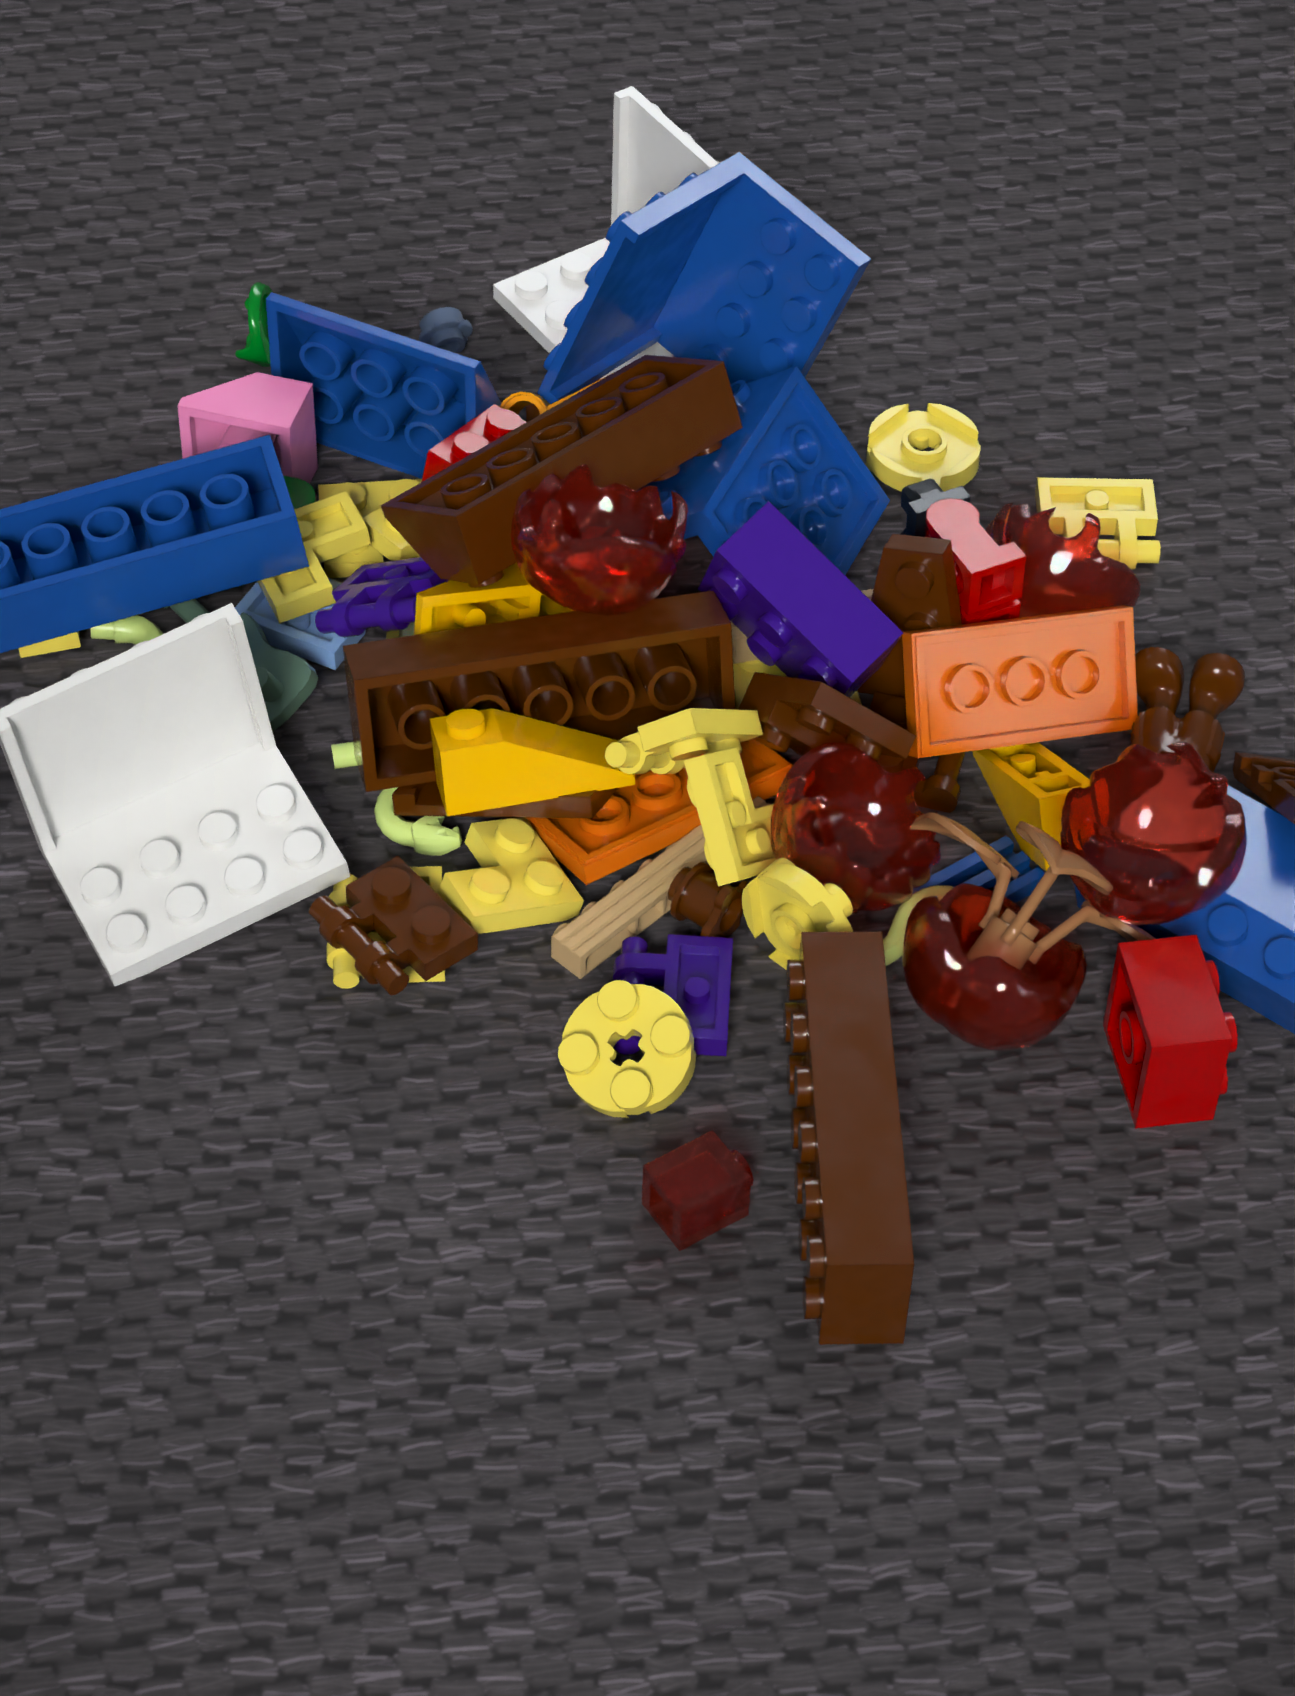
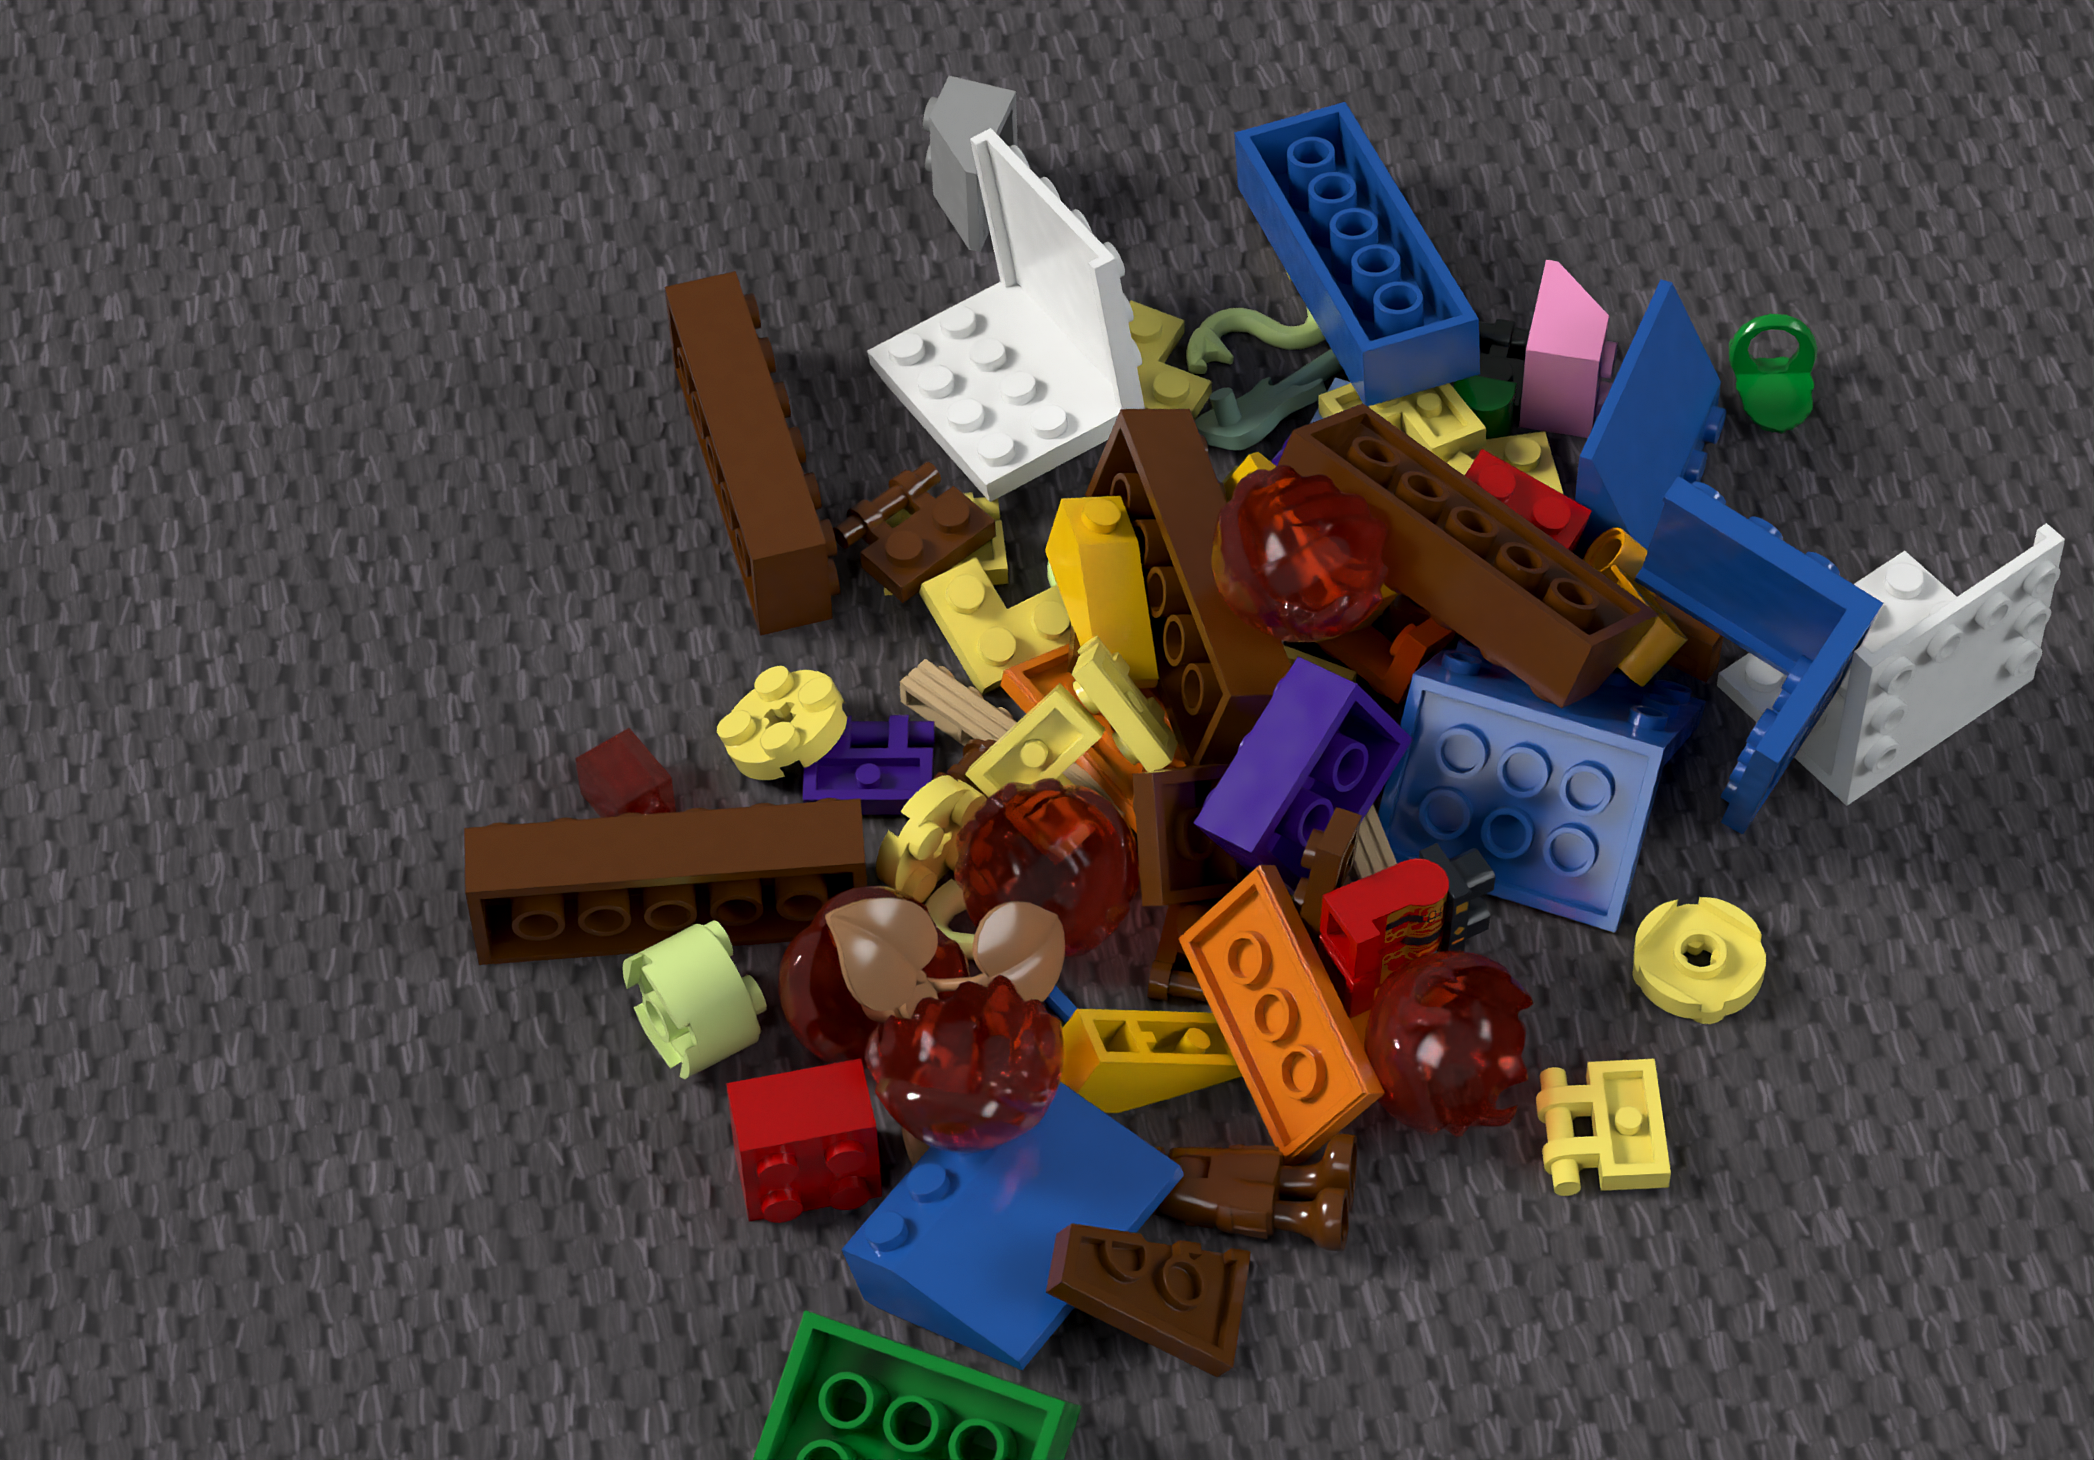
camera: 90 degrees right, 5 degrees up
(269, 1052) = (752, 453): none -> reddish brown brick
(445, 329) = (1812, 515): sand blue plate -> none
(996, 1116) = (695, 998): none -> yellowish green brick

